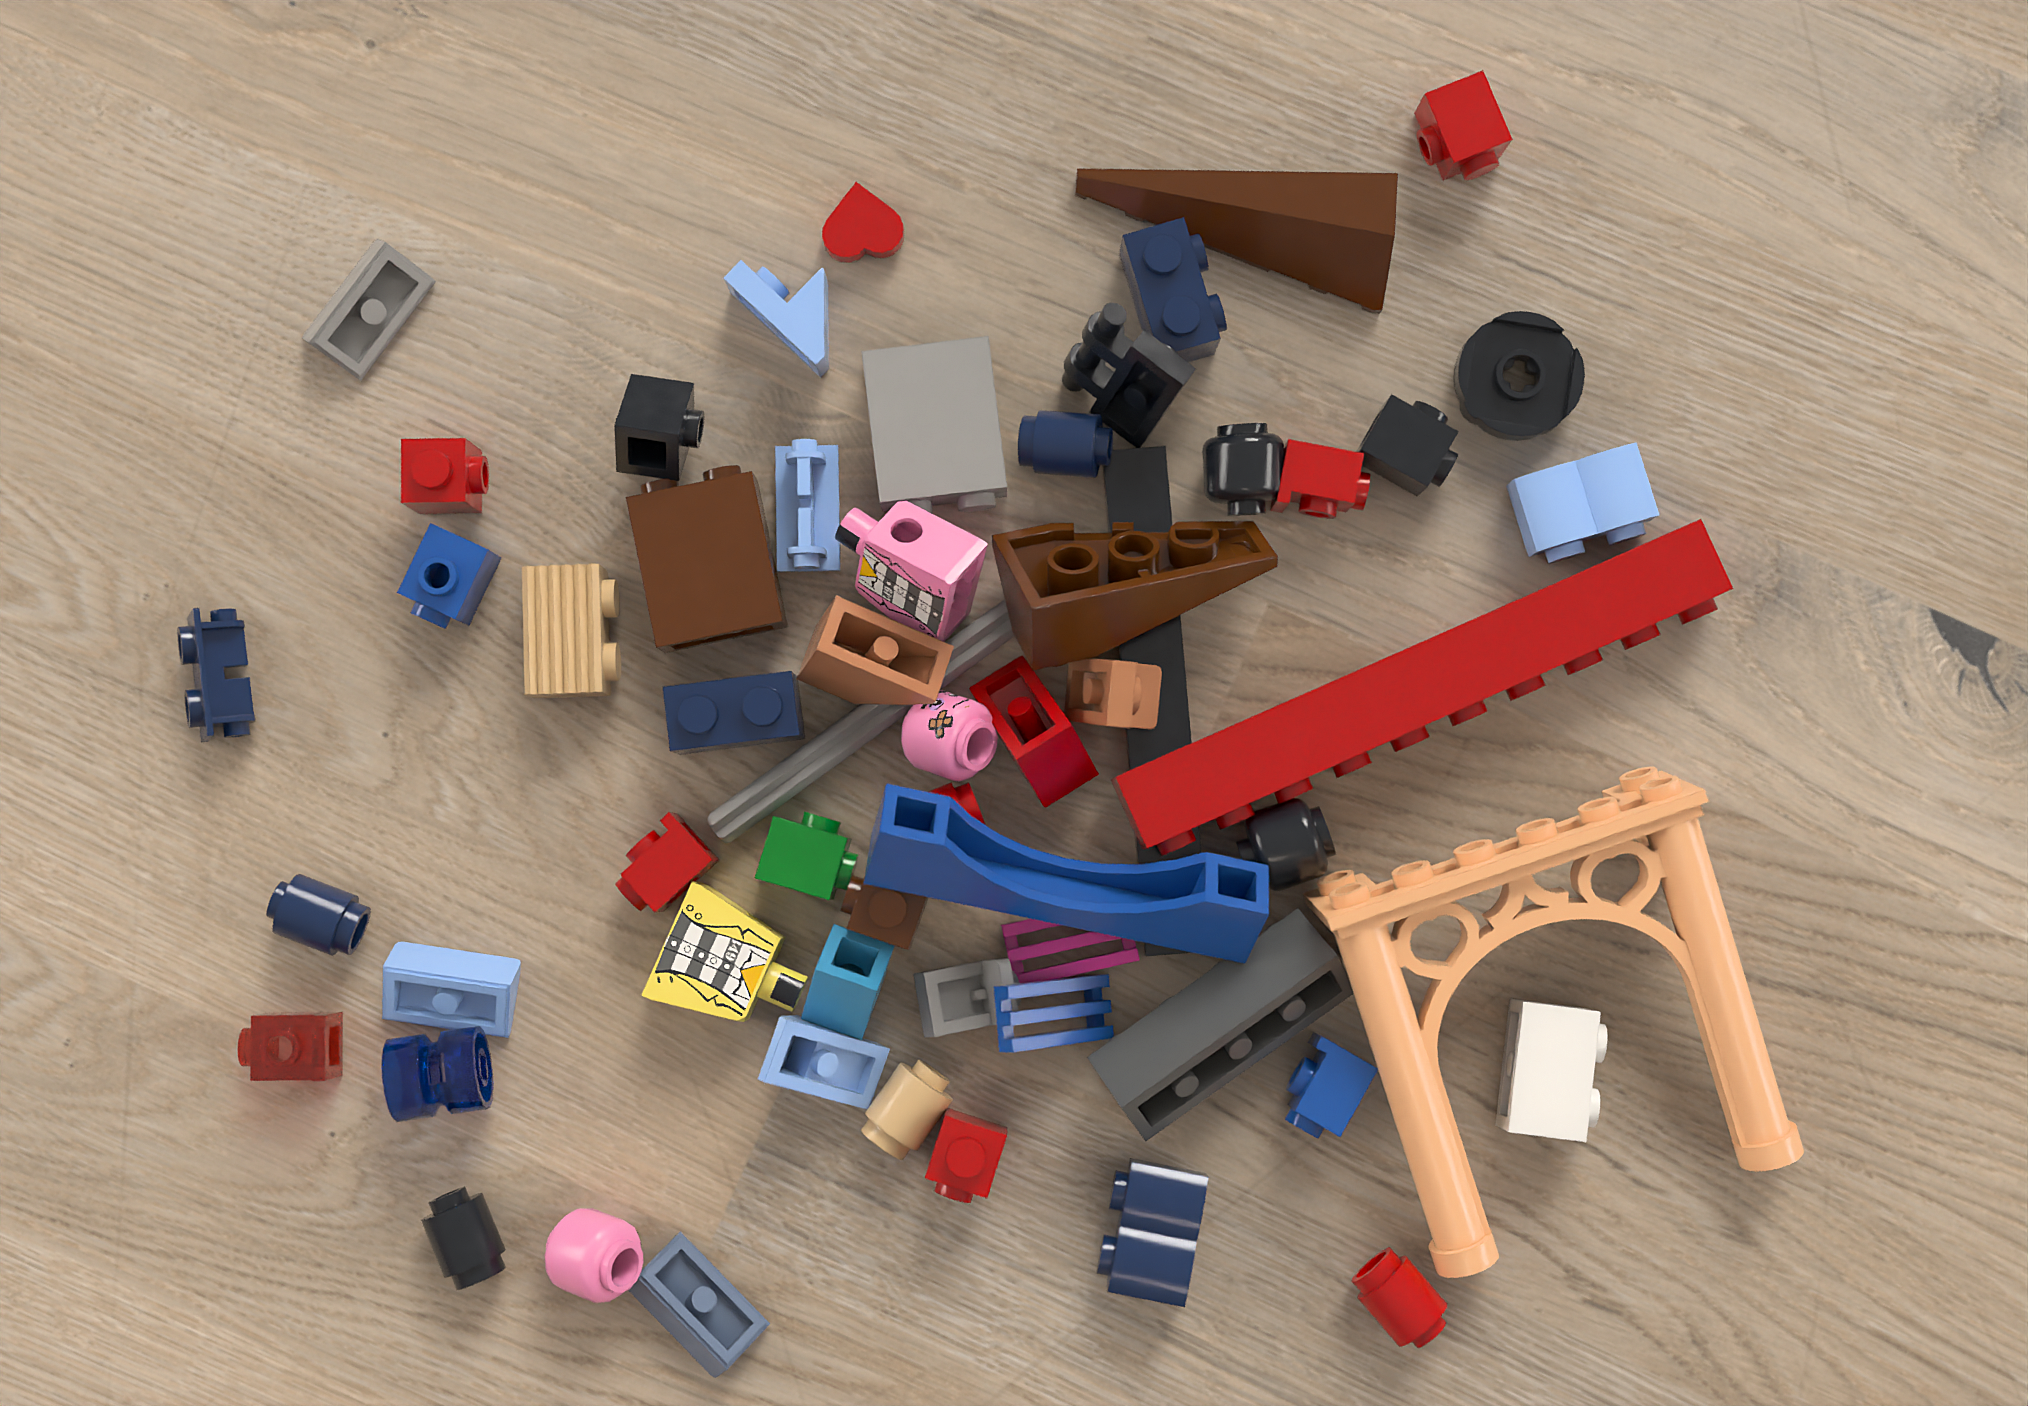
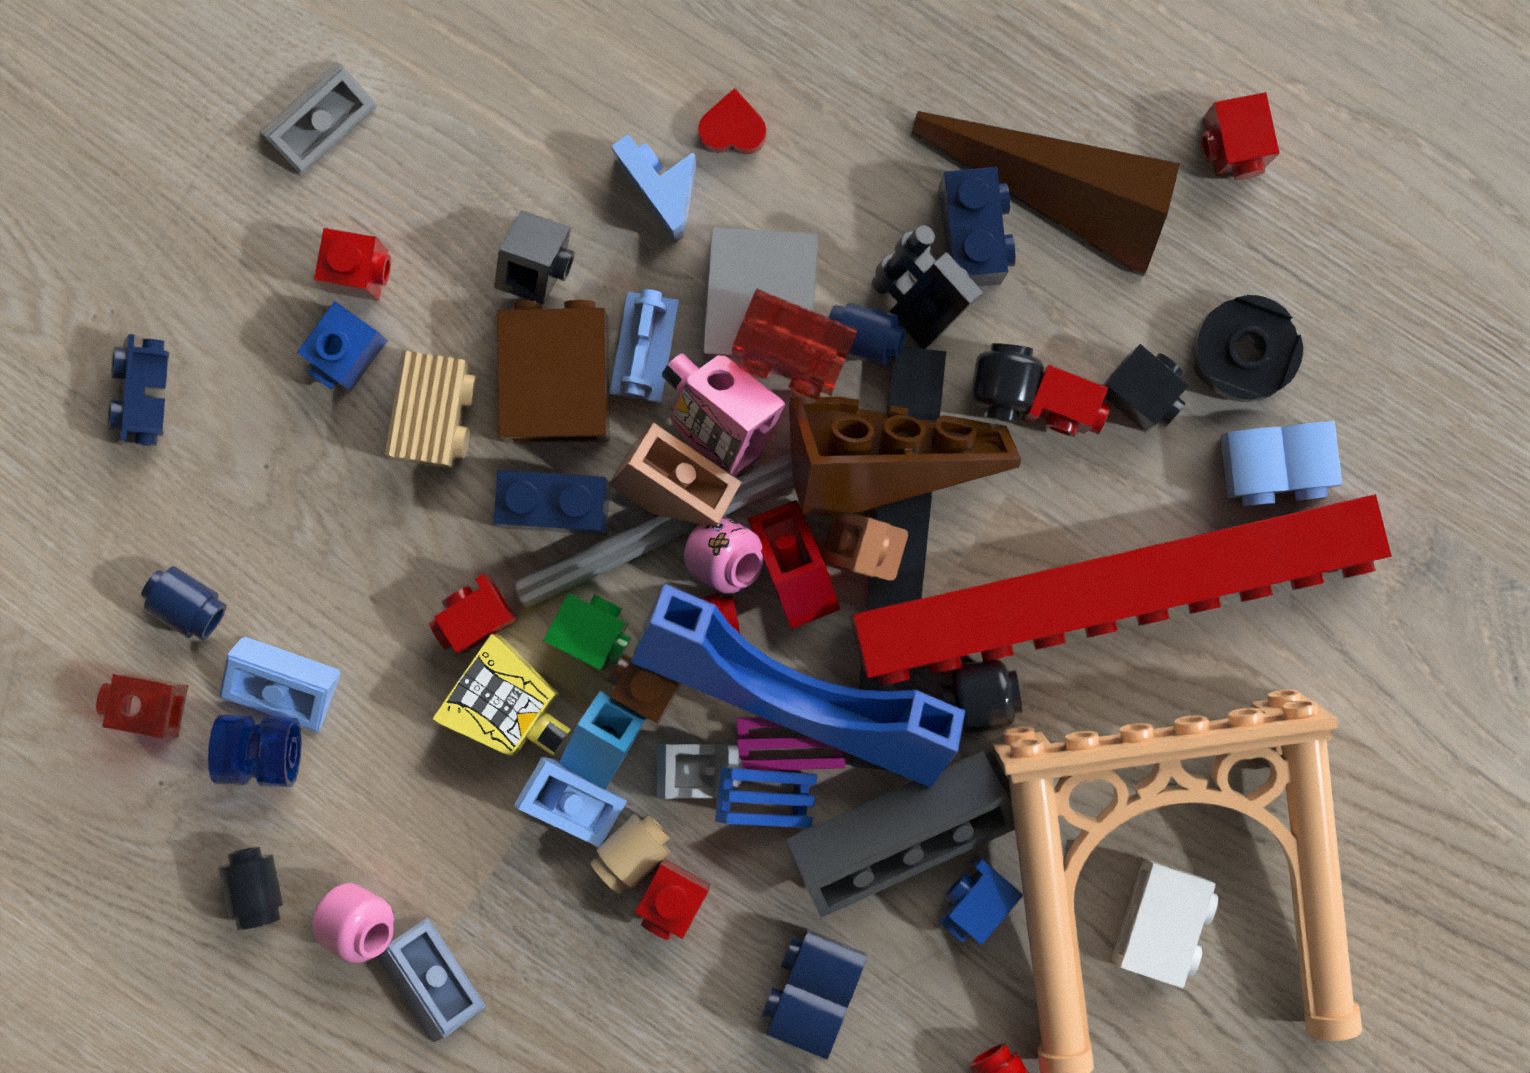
camera: 15 degrees right, 0 degrees up
(983, 472) = (792, 344): none -> clear red brick

